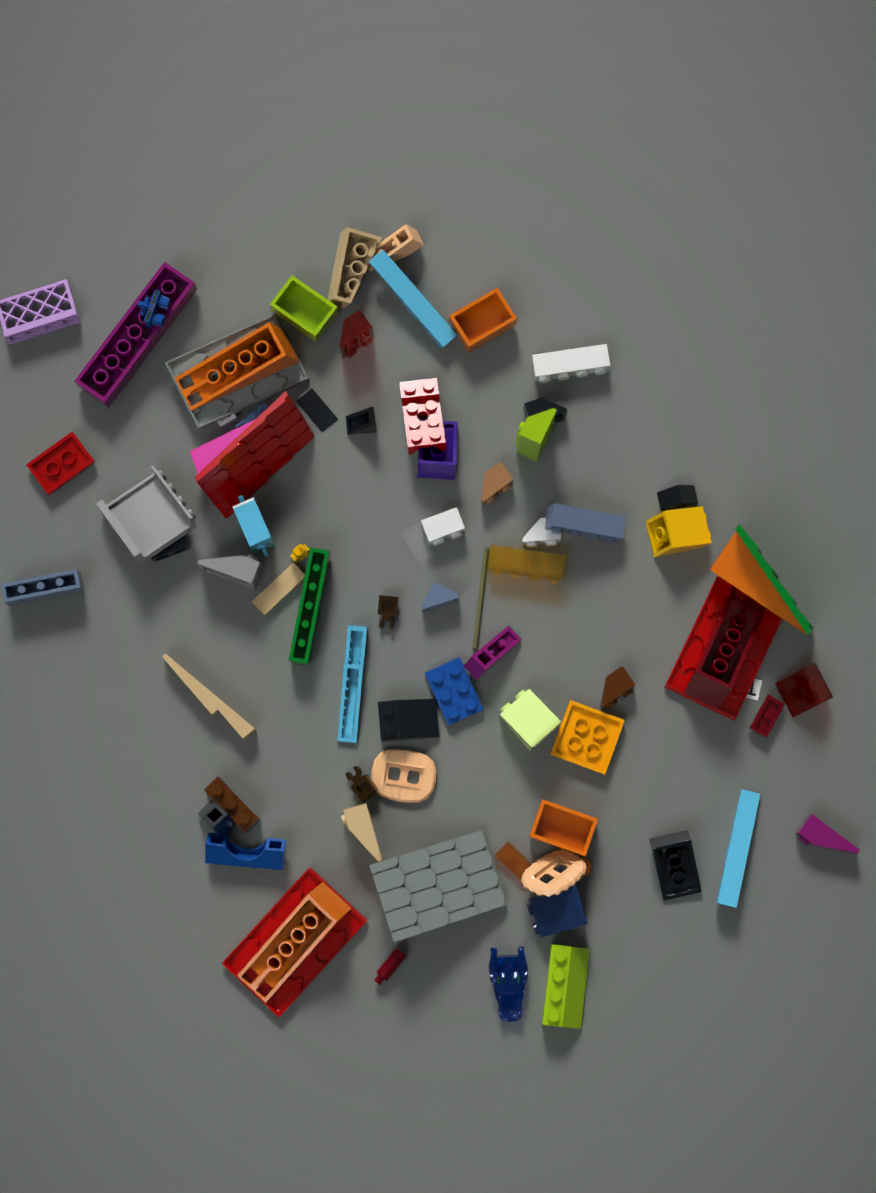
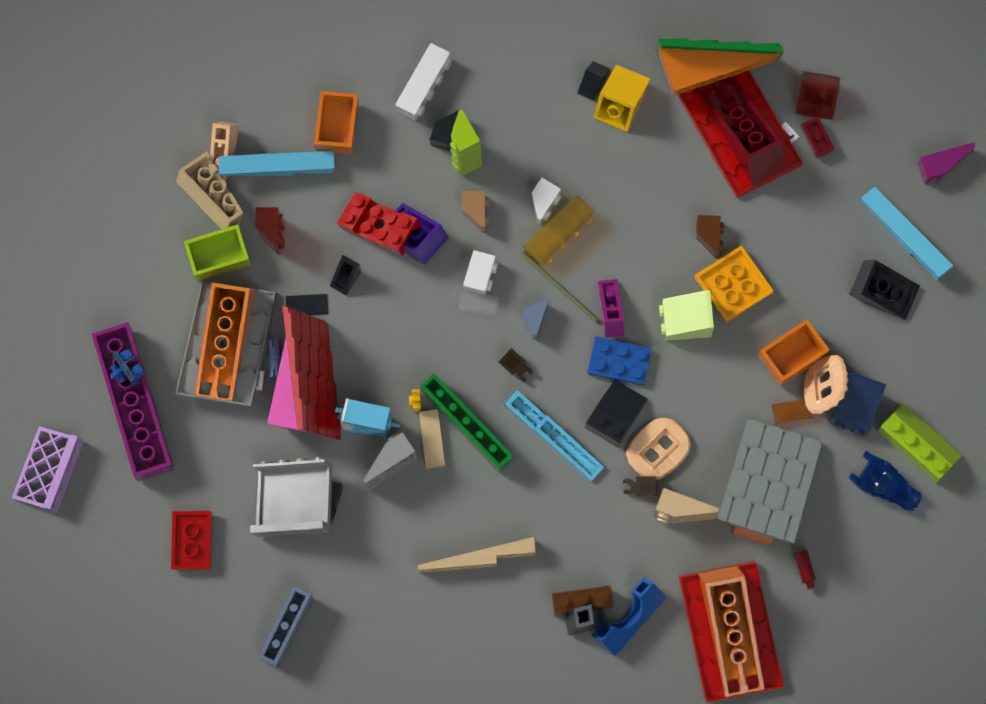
camera: 50 degrees left, 5 degrees down
(585, 522) = (562, 161): sand blue brick -> none

